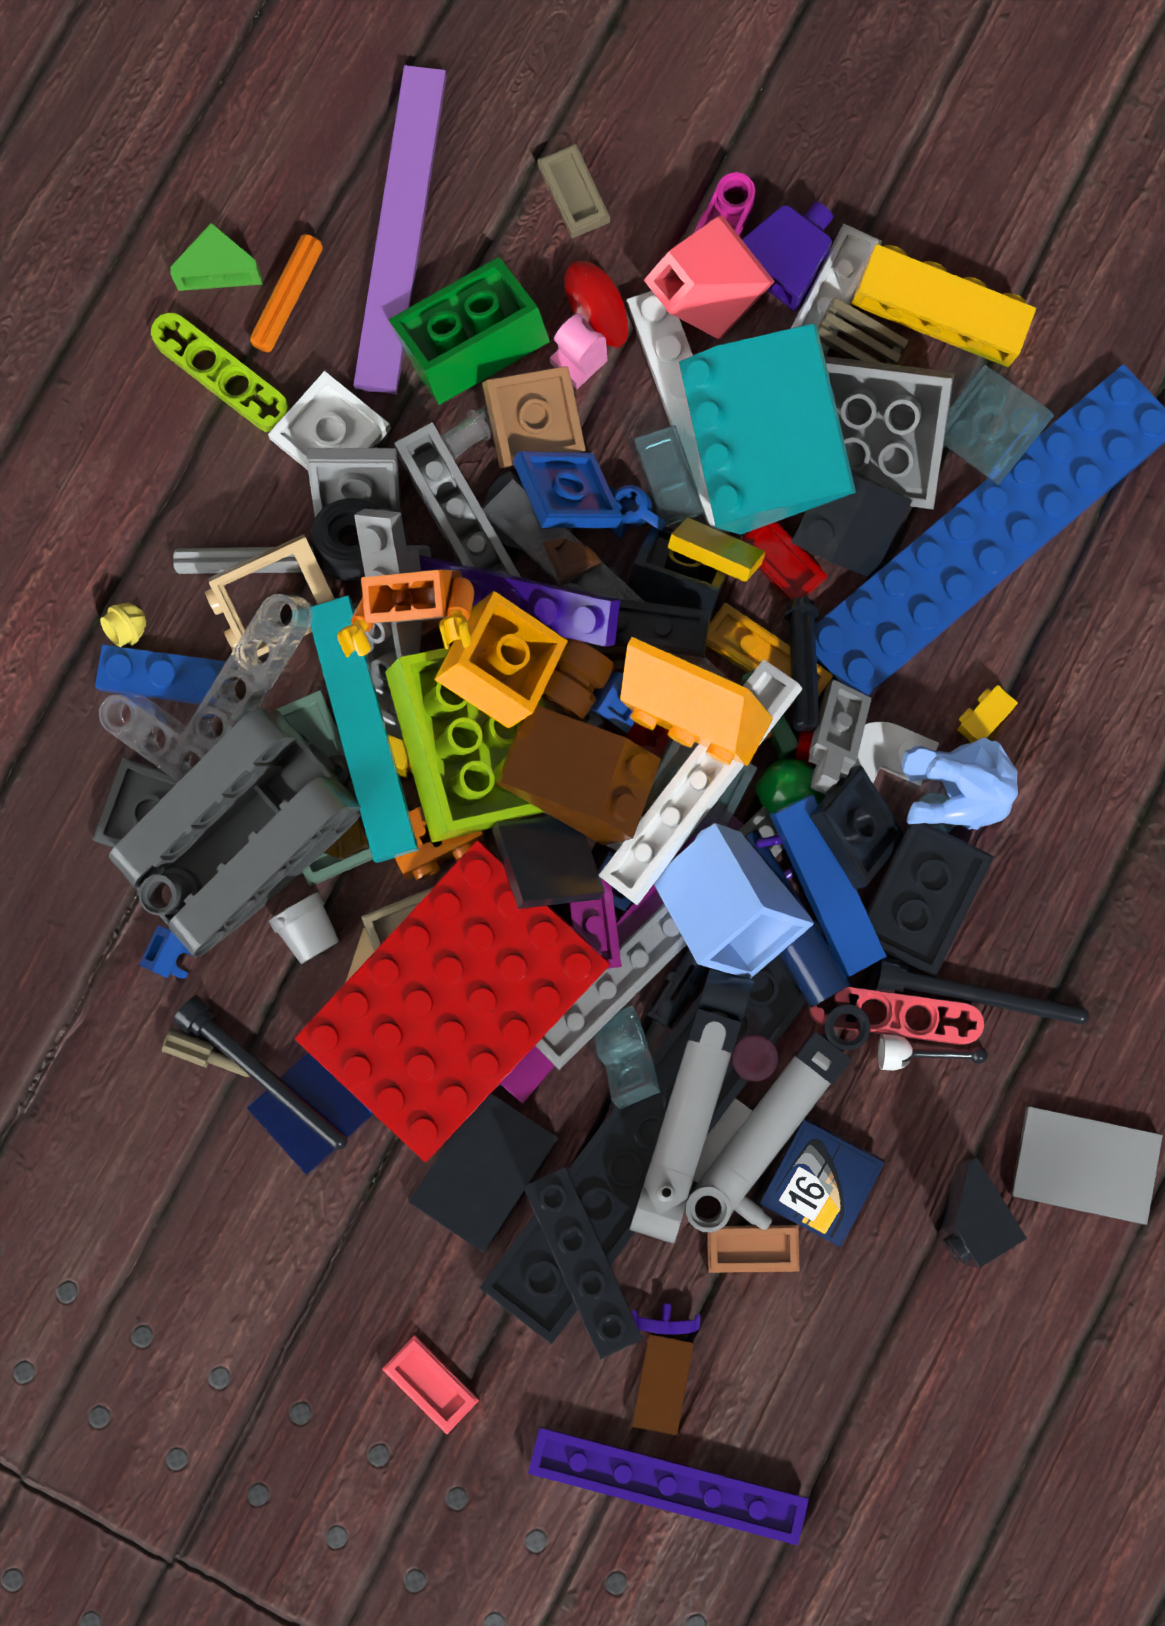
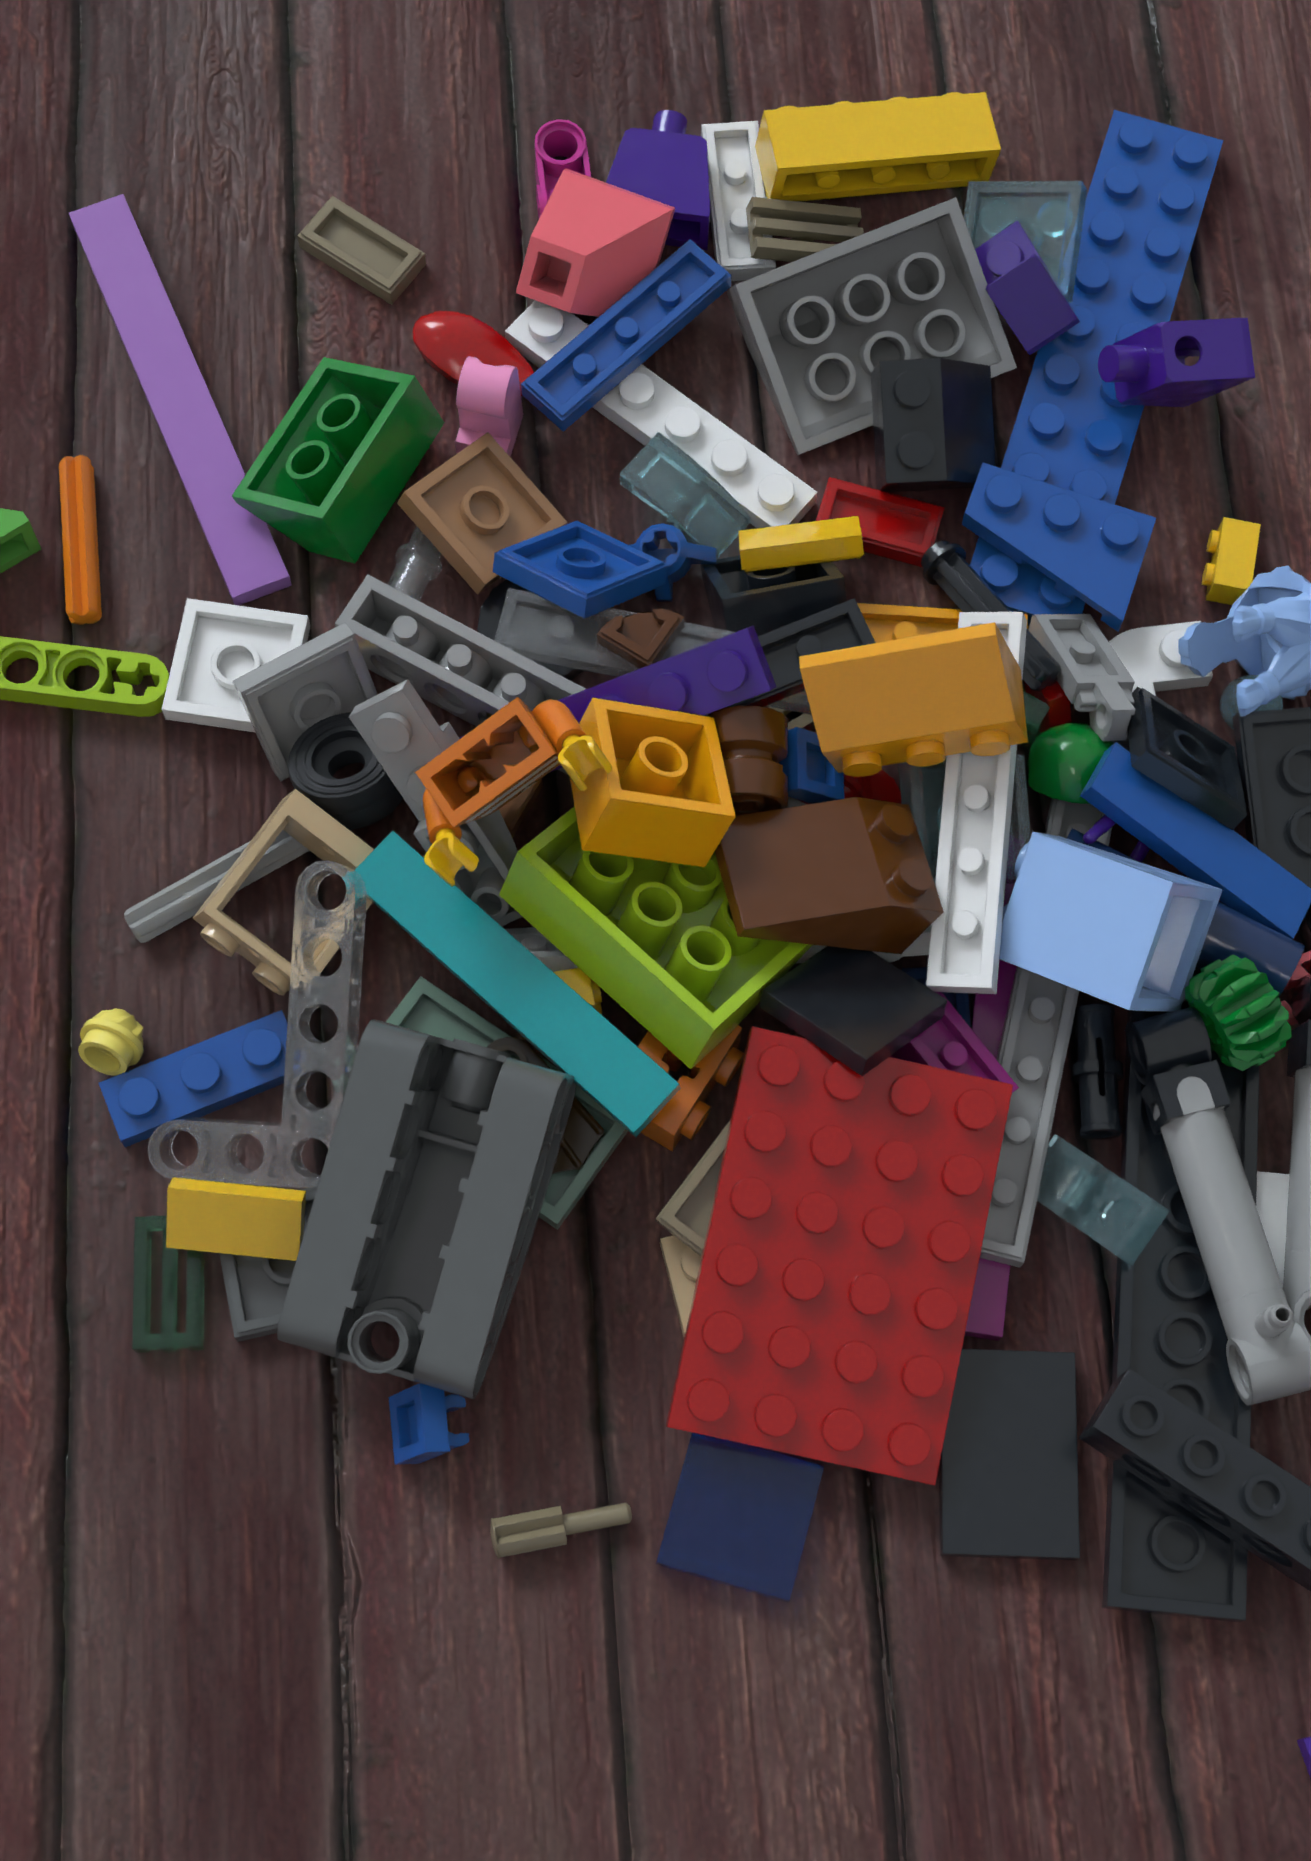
camera: 40 degrees left, 10 degrees down
(89, 794) = (169, 1338): none -> clear green tile
(126, 772) = (235, 1218): none -> yellow tile
(197, 1018) = (521, 1484): black piece -> none
(305, 928) = (589, 1281): light grey piece -> none
(430, 1384) = (1124, 1777): coral tile -> none
(659, 354) = (626, 335): none -> blue tile
(754, 1058) = (1255, 1104): clear pink tile -> none
(766, 428) = (780, 363): teal slope -> none
(776, 1001) = (1239, 1012): none -> green gear
(885, 641) = (1068, 536): none -> blue wing
(967, 459) = (1024, 288): none -> dark purple slope
(1027, 568) = (1152, 366): none -> dark purple torso

